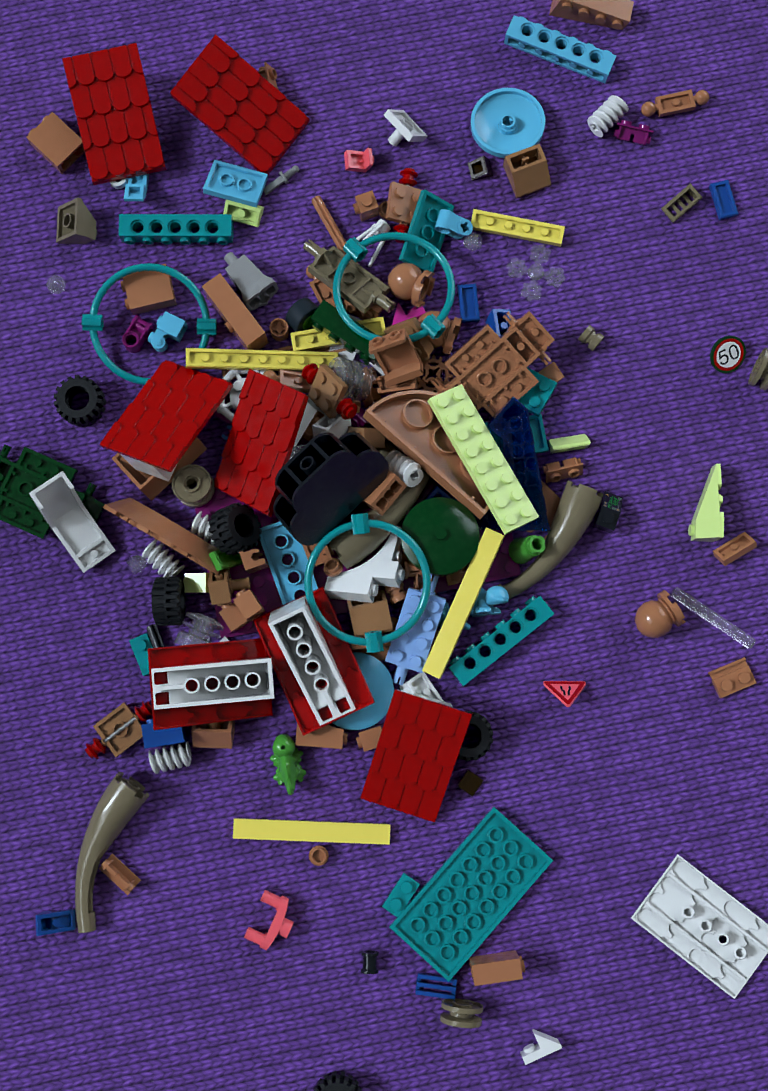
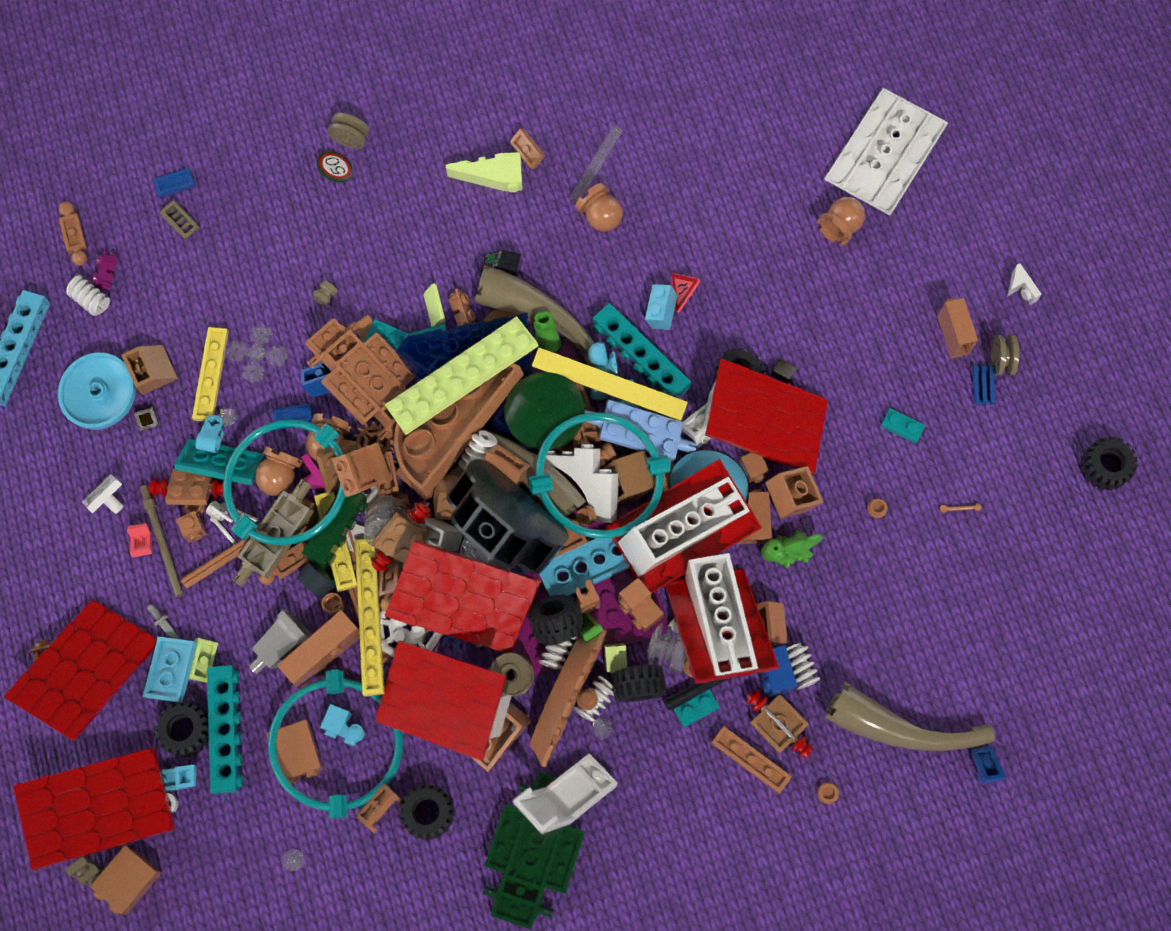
camera: 95 degrees left, 10 degrees down
(53, 766) = (828, 793): none -> nougat tile
(65, 108) = (84, 870): none -> dark tan slope
(75, 223) = (221, 846): dark tan slope -> none
(89, 357) = (377, 807): none -> nougat hinge
(90, 699) = (751, 760): none -> nougat plate
(119, 874) = (928, 706): nougat hinge -> none
(139, 331) = (343, 757): magenta piece -> none
(157, 551) = (587, 699): none -> nougat plate
(176, 179) = (168, 721): none -> black tyre
(222, 586) = (618, 625): medium nougat brick -> none
(279, 925) = (951, 539): coral connector -> none
(311, 831) = (854, 519): light yellow tile -> none
(311, 922) = (943, 509): none -> nougat hinge
(338, 773) = (794, 492): none -> nougat brick
(369, 962) = (972, 447): black bush -> none
(393, 169) = (149, 506): none -> dark tan bar
(471, 893) = (890, 360): teal plate -> none
(547, 666) = (661, 307): none -> medium azure brick
(628, 867) = (842, 220): none -> nougat tile
(732, 677) = (651, 144): nougat plate -> none

